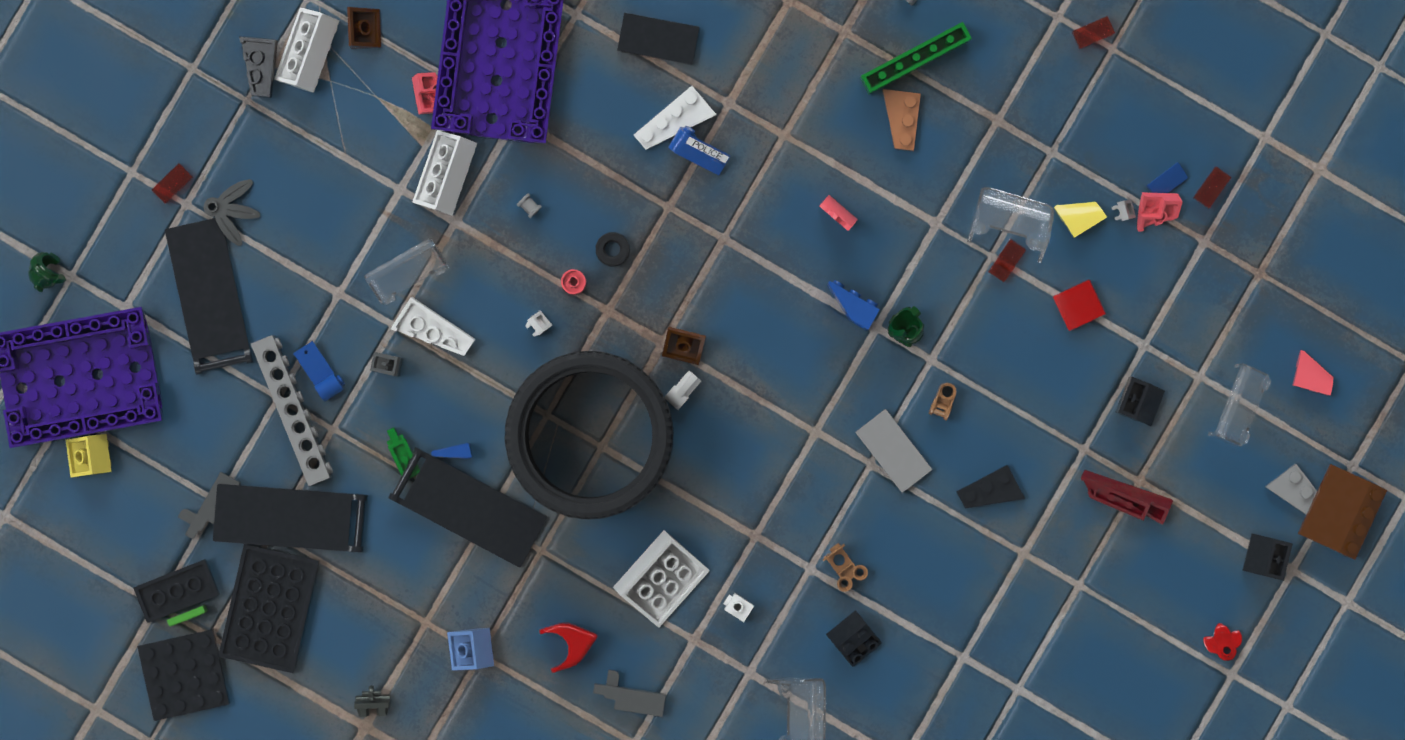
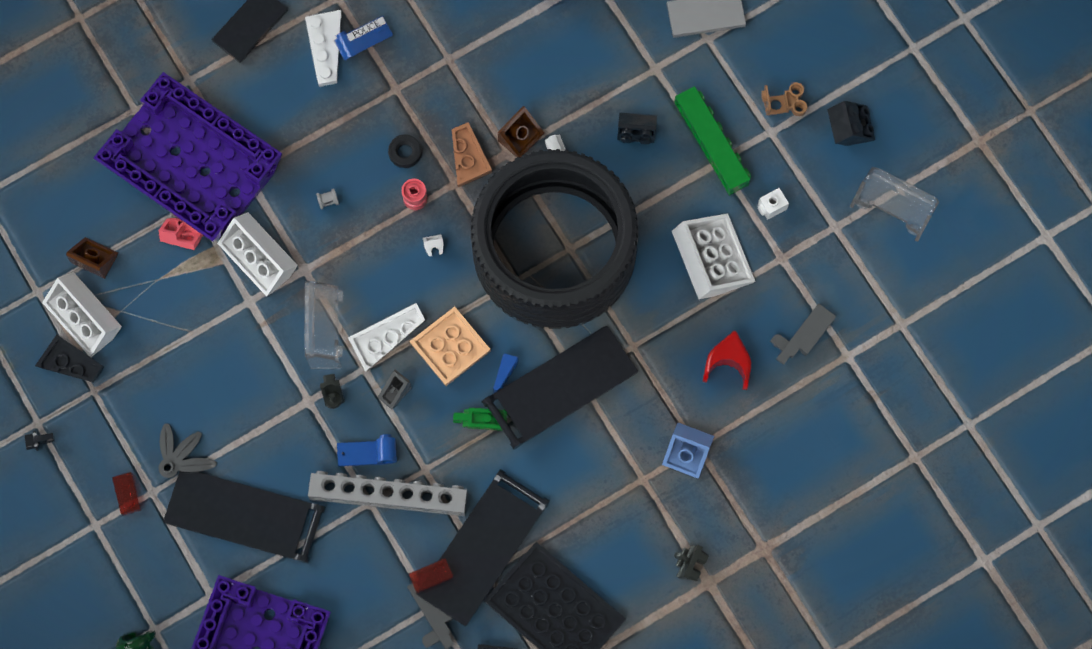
camera: 60 degrees left, 15 degrees down
(173, 75) = (32, 440): none -> black piece
(237, 488) = (430, 575): none -> clear red plate
(352, 312) = (331, 391): none -> pearl dark grey hips
(452, 390) = (450, 346): none -> light nougat plate
(638, 309) = (468, 155): none -> nougat wing
(745, 446) = (637, 128): none -> black slope
(770, 520) = (712, 140): none -> green brick

